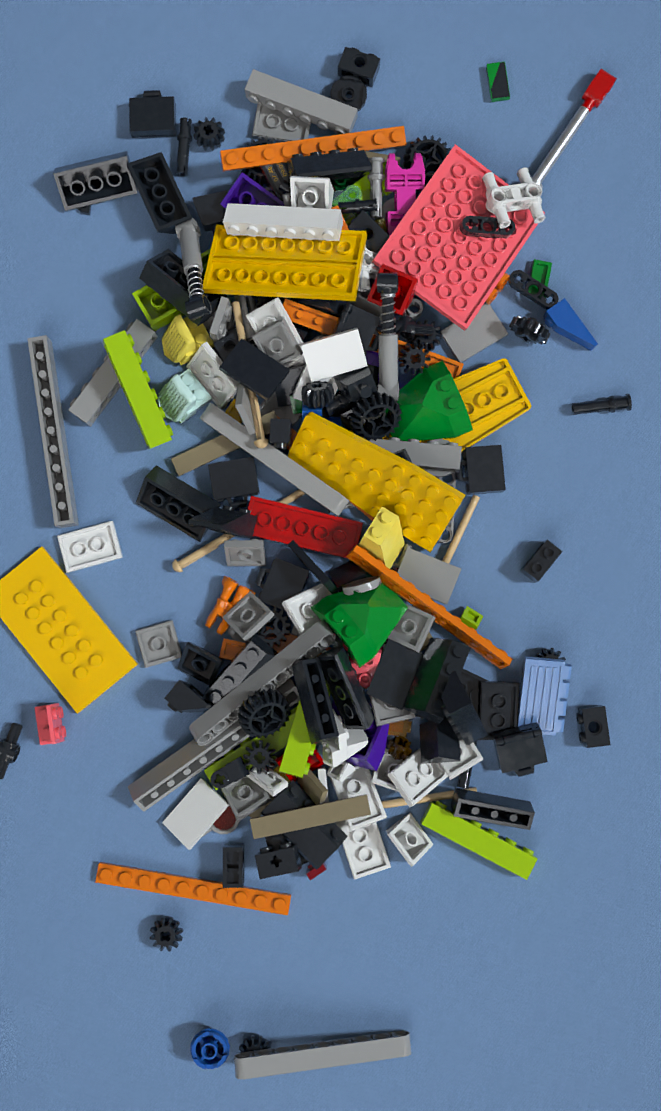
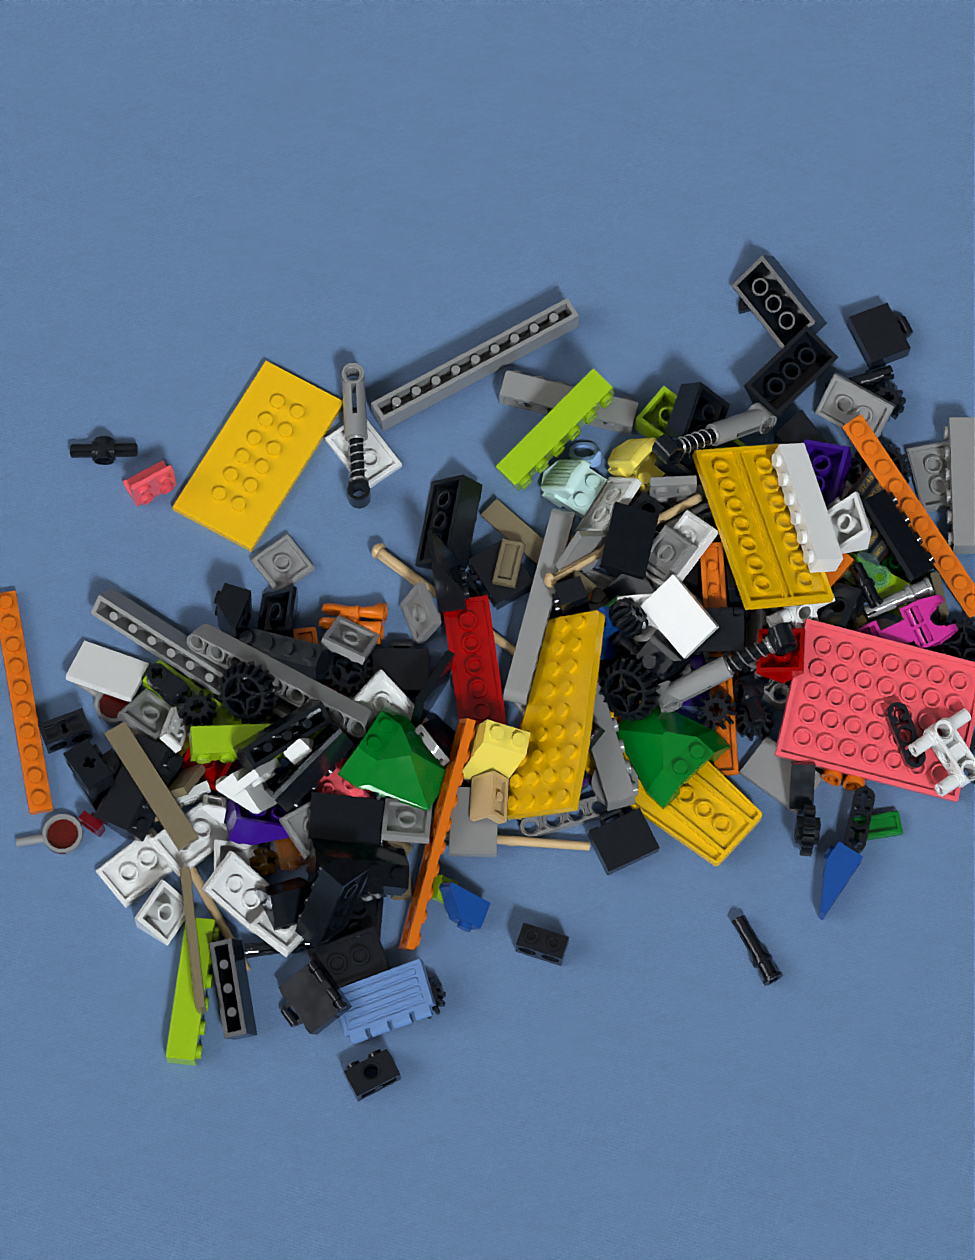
camera: 65 degrees right, 15 degrees down
(73, 546) = (355, 433): none -> piece
(169, 373) = (595, 459): none -> light blue piece
(202, 159) = (847, 400): none -> light grey tile
(230, 469) = (508, 563): none -> dark tan tile
(313, 897) = (60, 834): none -> piece
(334, 691) = (299, 749): none -> white slope
(415, 557) = (489, 797): none -> tan panel
(446, 827) = (193, 941): none -> dark tan tile
(492, 608) = (463, 906): none -> blue slope
(494, 319) = (801, 784): none -> black tile

